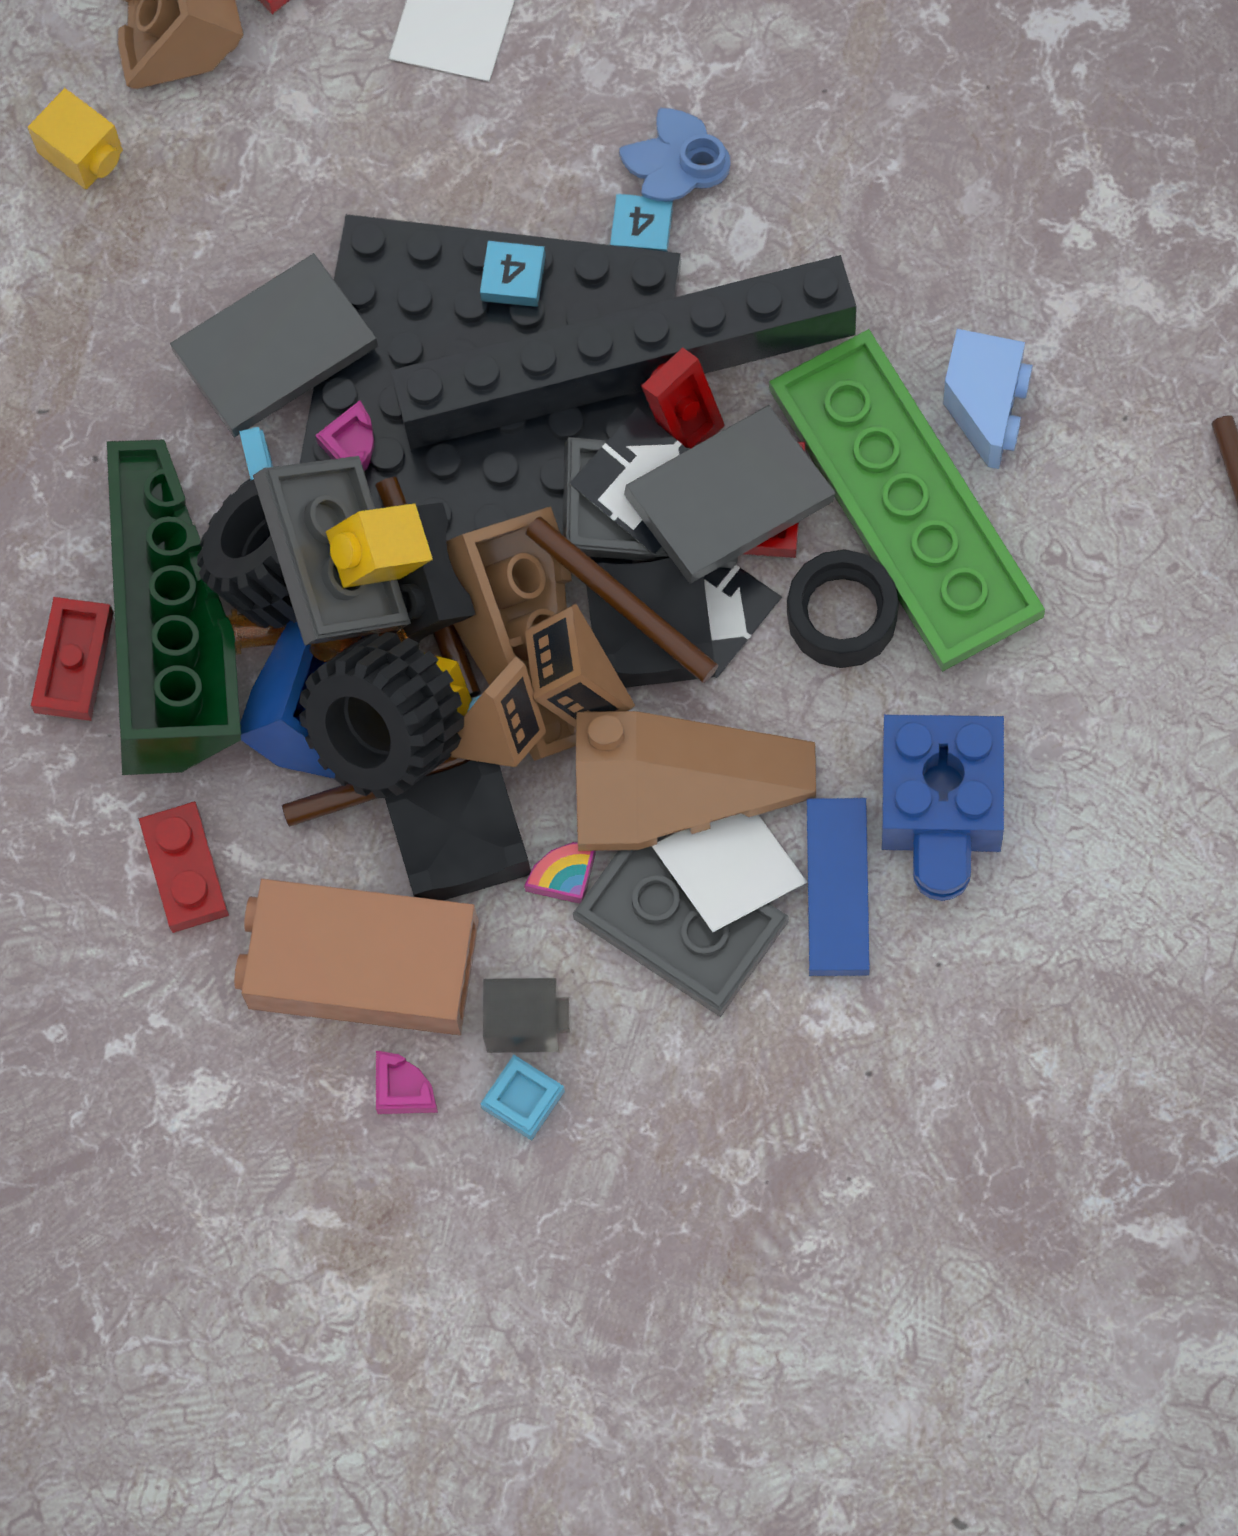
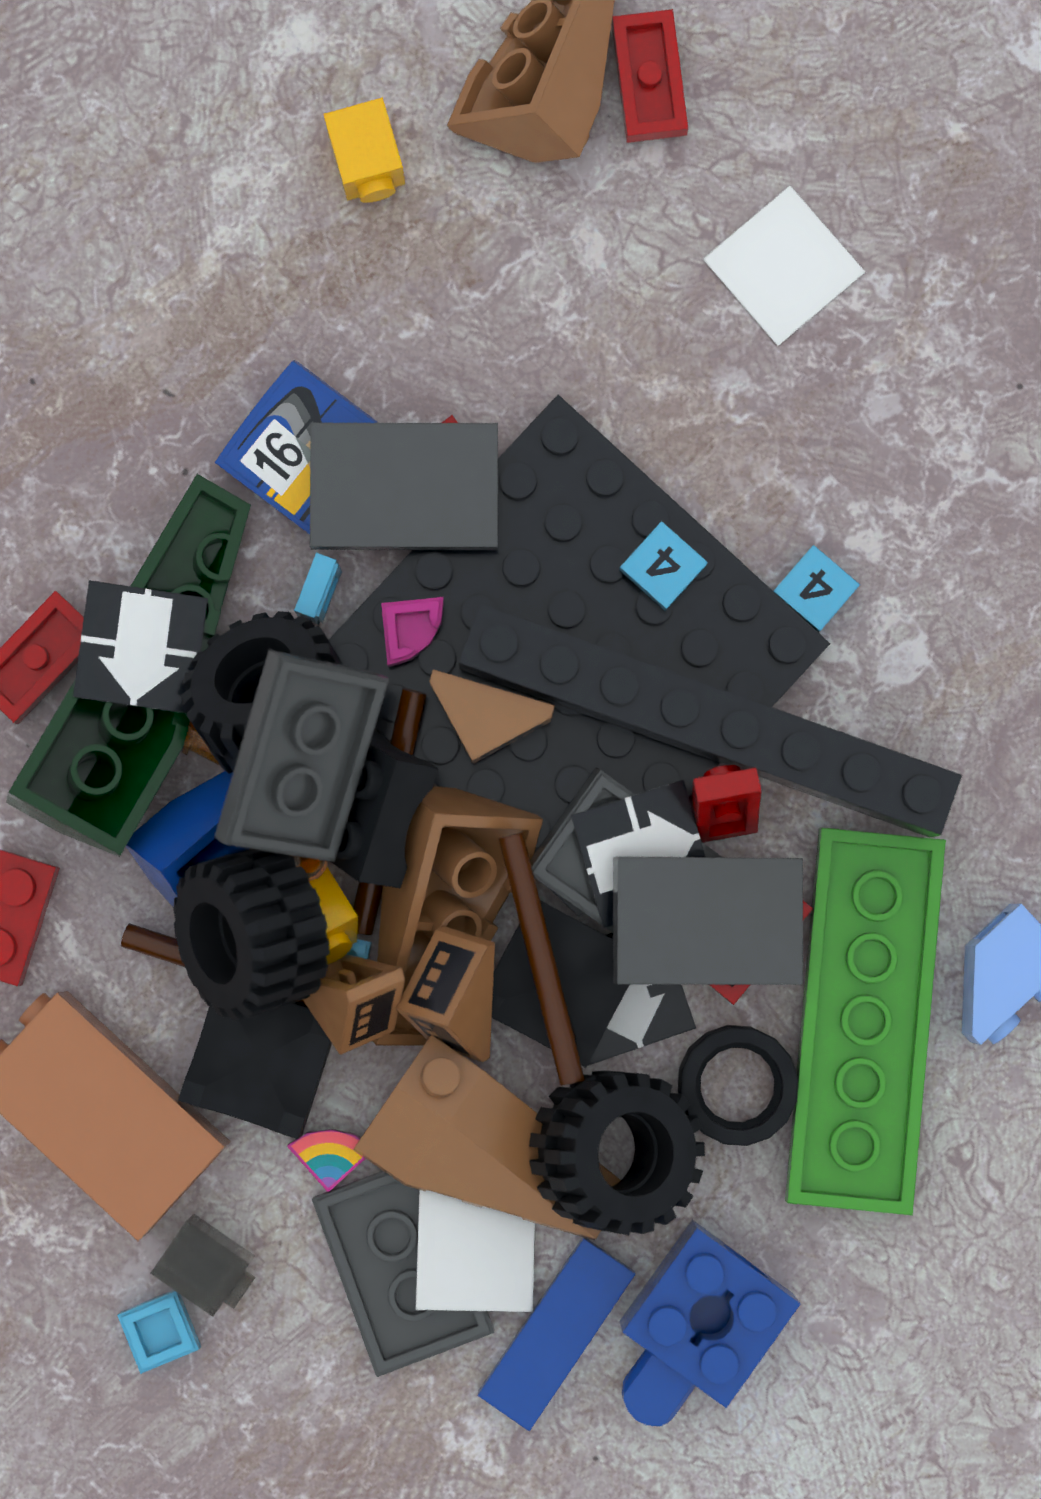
camera: 25 degrees right, 15 degrees up
(149, 582) = (138, 645): none -> sticker
(153, 385) = (274, 440): none -> slope
(378, 545) = (342, 789): yellow brick -> none
(401, 1086) = (64, 1248): dark pink tile -> none
(453, 457) = (485, 715): none -> medium nougat slope
(673, 157) = (886, 538): medium blue plate -> none
(802, 673) = (661, 1161): none -> black tyre

